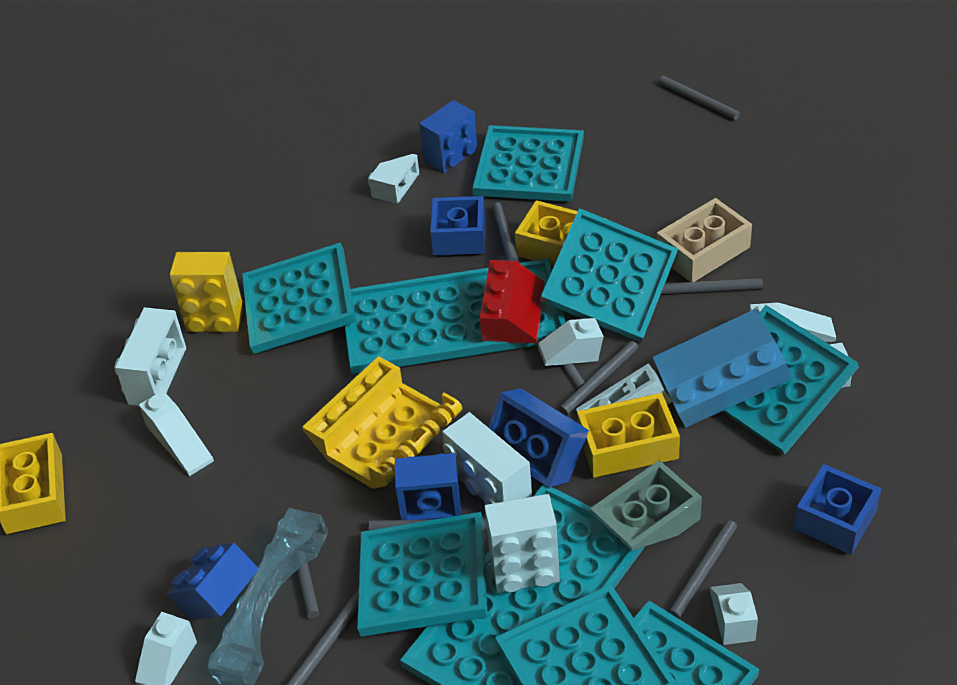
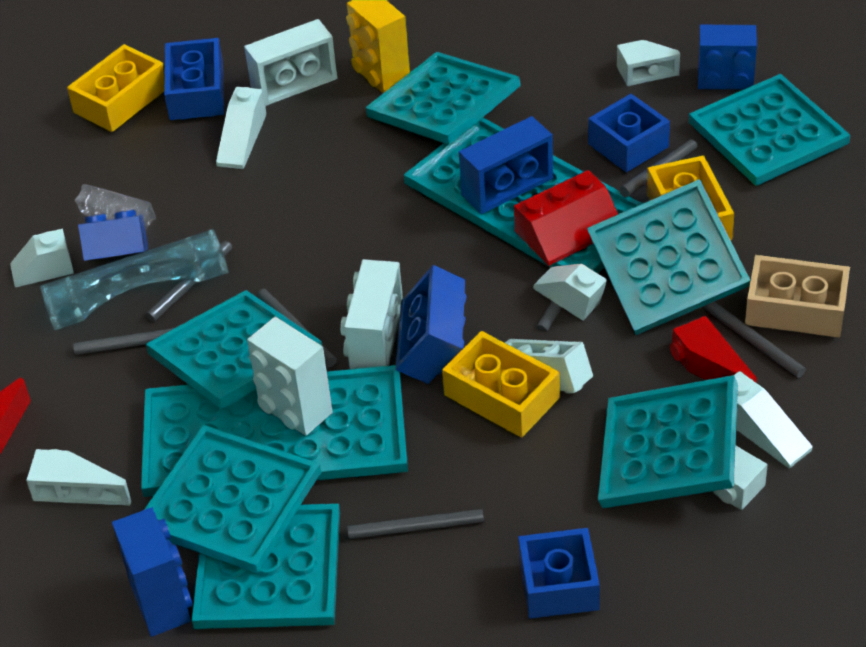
camera: 50 degrees right, 0 degrees up
(87, 427) = (194, 79): none -> blue brick
(159, 567) = (101, 201): none -> clear piece
(376, 423) = (358, 222): yellow slope -> none
(427, 487) = (315, 295): blue brick -> none
(428, 299) = (506, 164): none -> blue brick
(598, 378) = (576, 331): dark grey bar -> none
(649, 508) = (427, 443): sand green slope -> none
(701, 312) = (706, 351): none -> red slope
(722, 367) = (635, 396): dark azure slope -> none
(734, 613) = (381, 567): light aqua slope -> none

